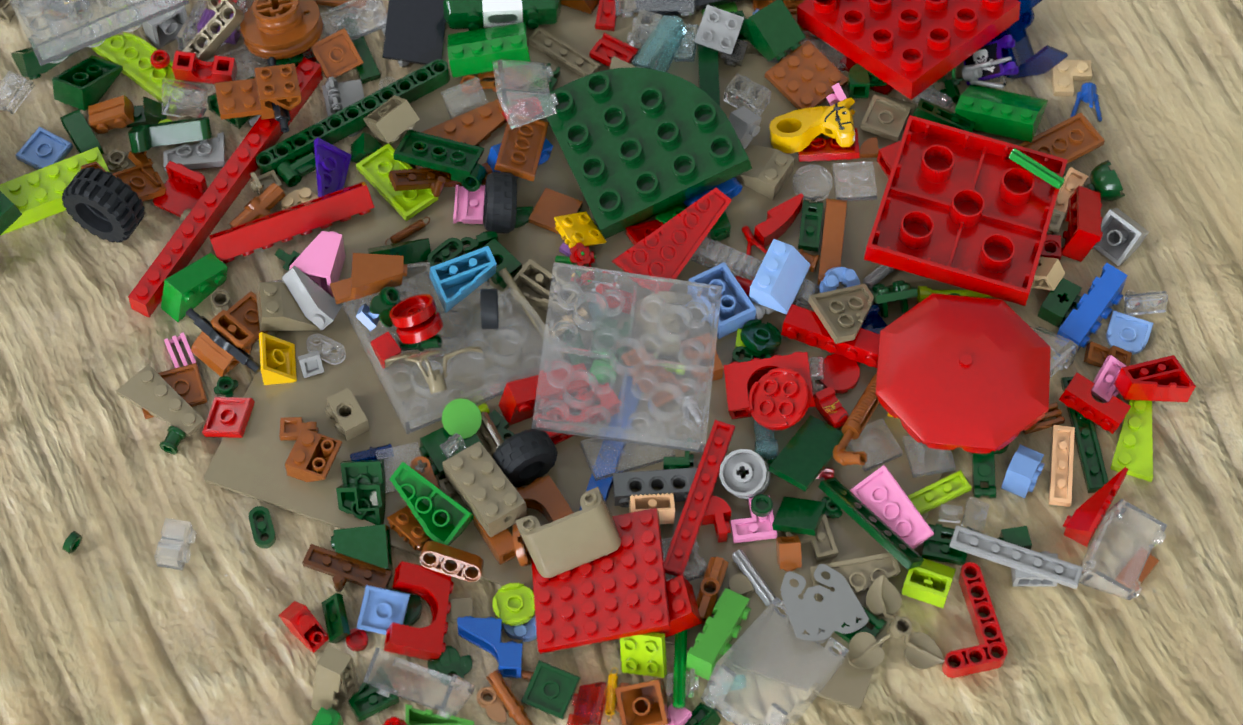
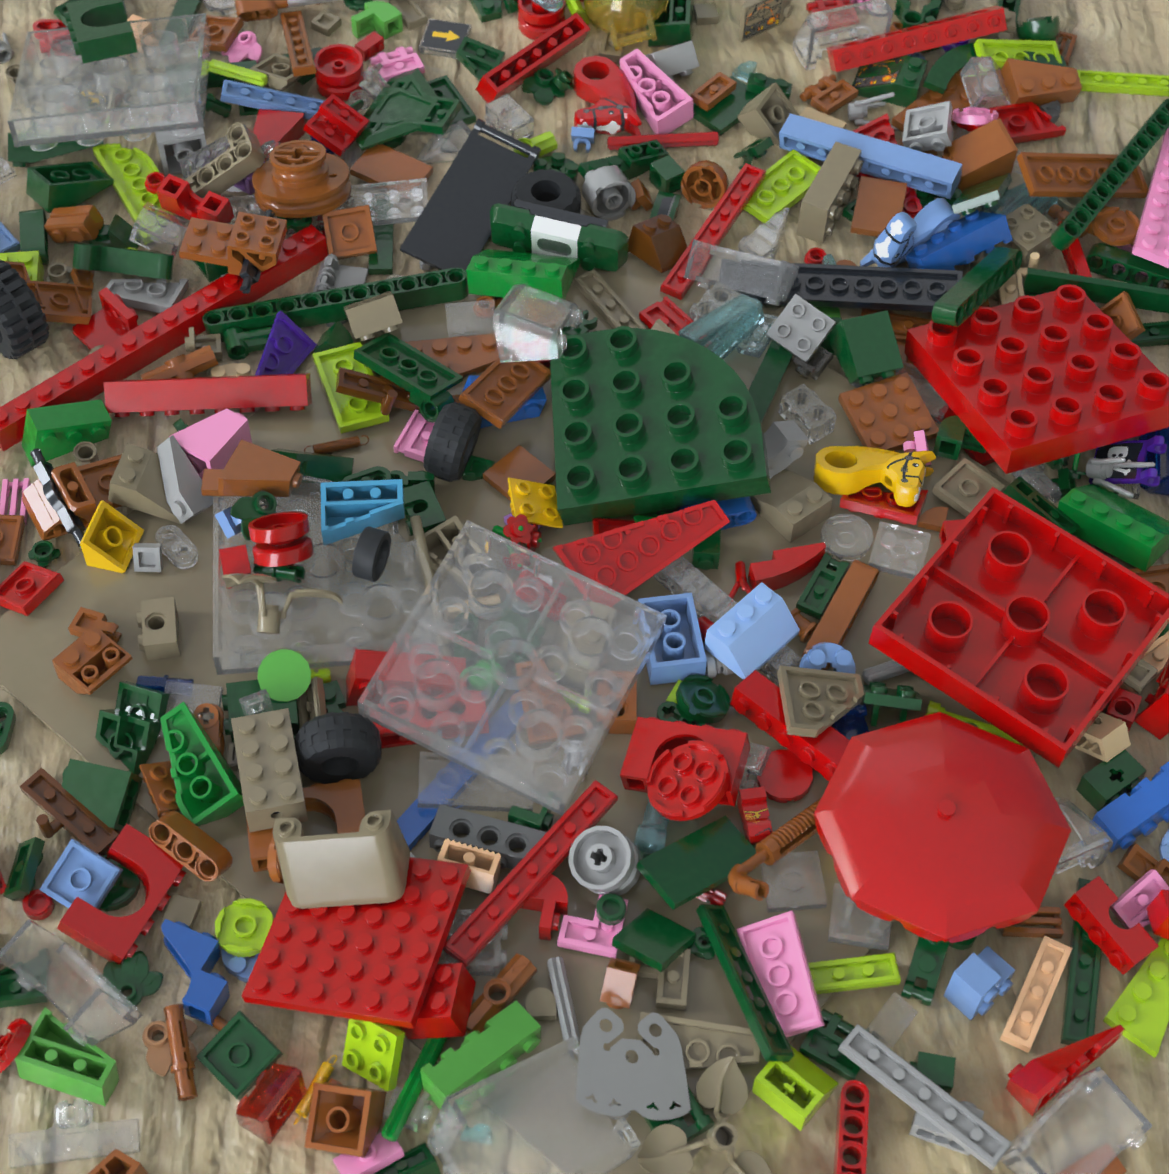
camera: 20 degrees right, 5 degrees down
(950, 513) = (859, 1005): clear tile -> none
(1036, 168) = (1134, 598): axle -> none

